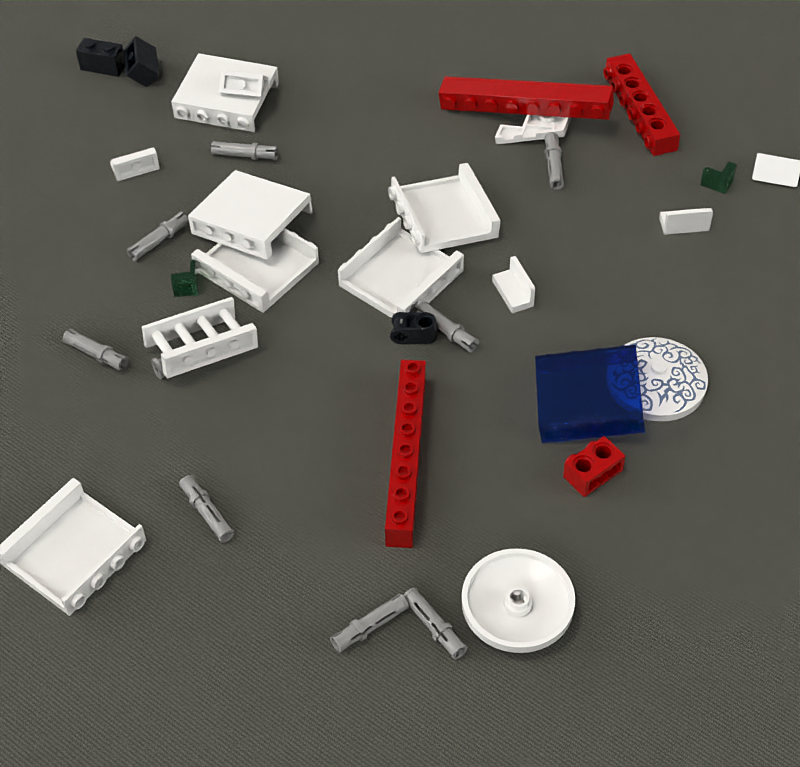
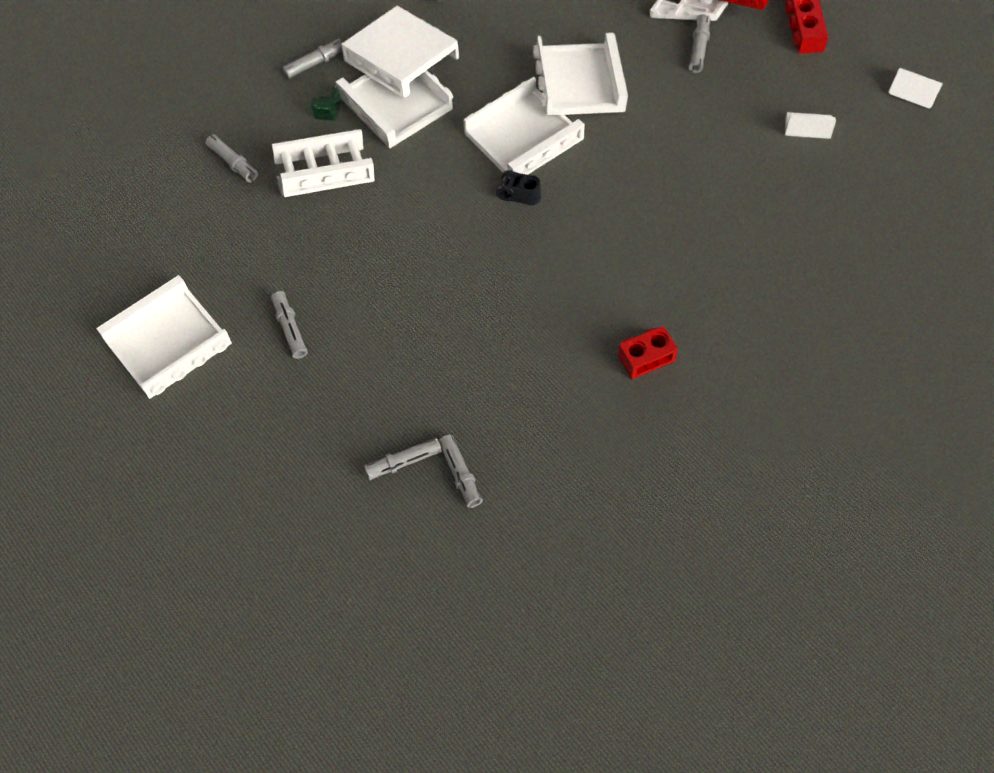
camera: 15 degrees right, 10 degrees up
(405, 455) = (478, 307): red brick -> none
(454, 331) = (556, 198): light grey pin -> none
(515, 287) = (625, 164): white panel -> none
(518, 600) = (539, 466): white dish -> none
(589, 394) = (661, 281): clear blue panel -> none
(670, 378) = (734, 278): white dish -> none
(719, 180) = (855, 89): clear green panel -> none

